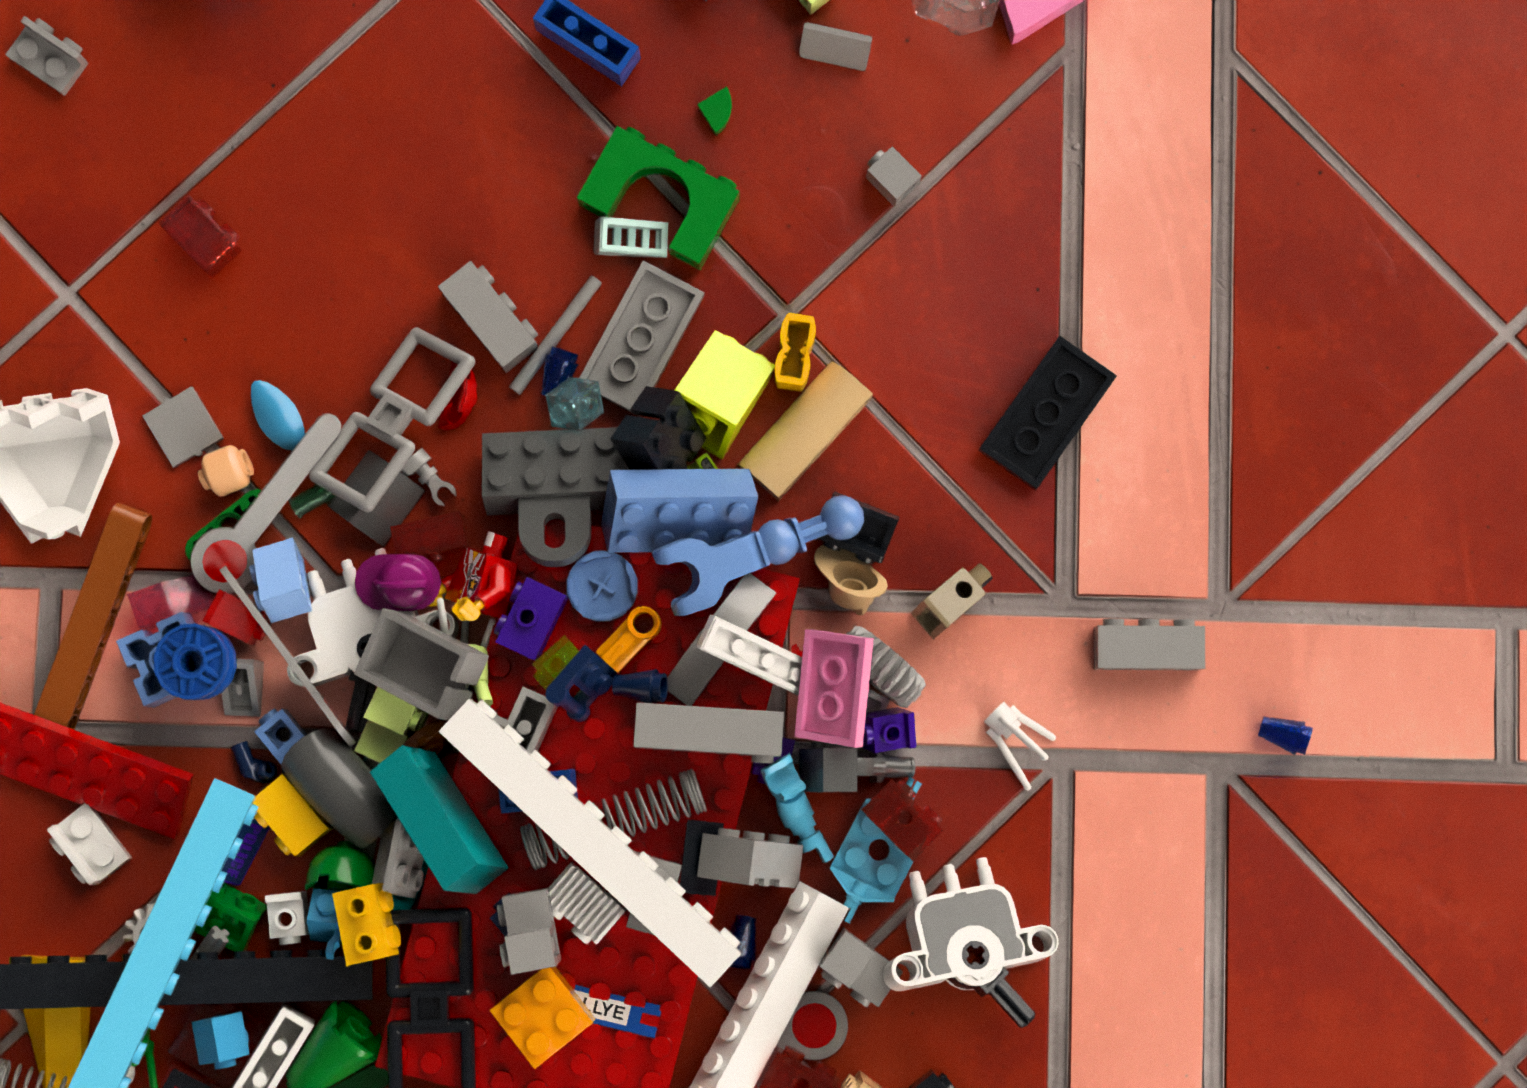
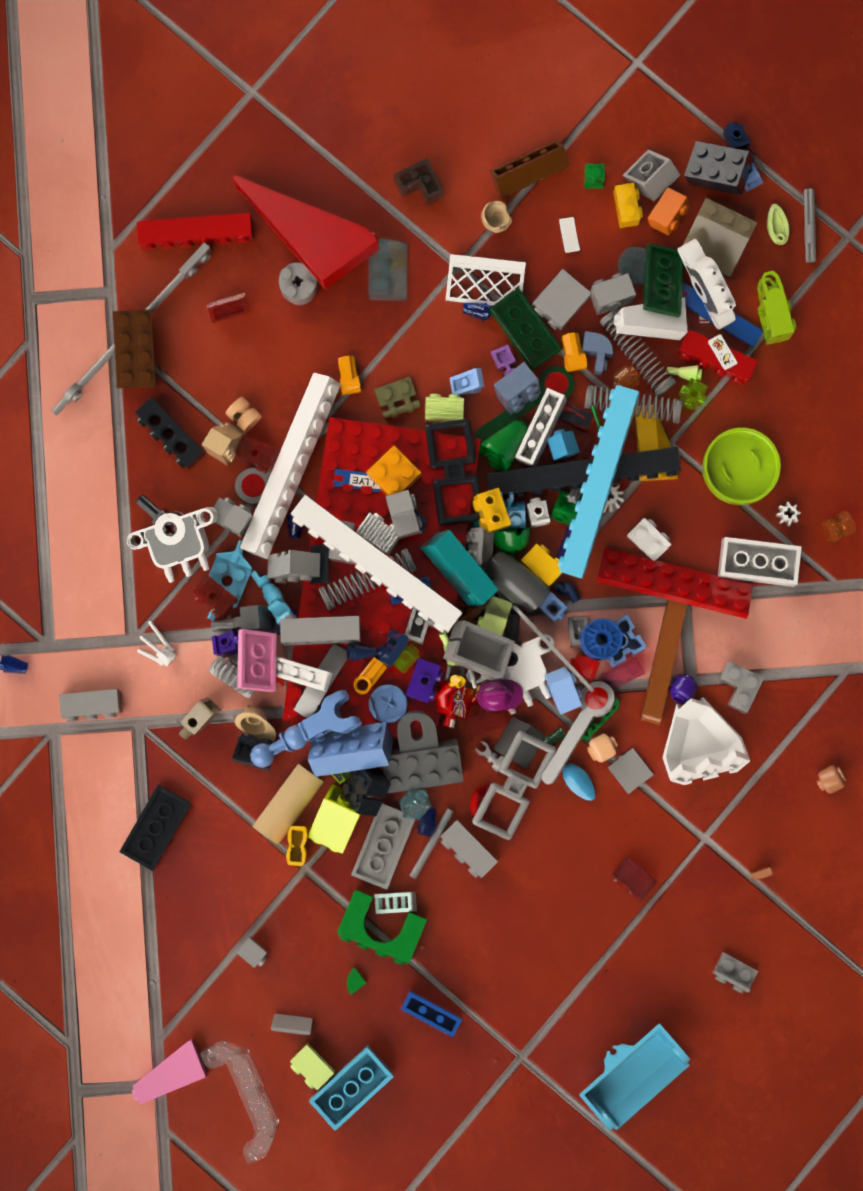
camera: 175 degrees right, 0 degrees up
(64, 562) = (683, 688): none -> dark purple head

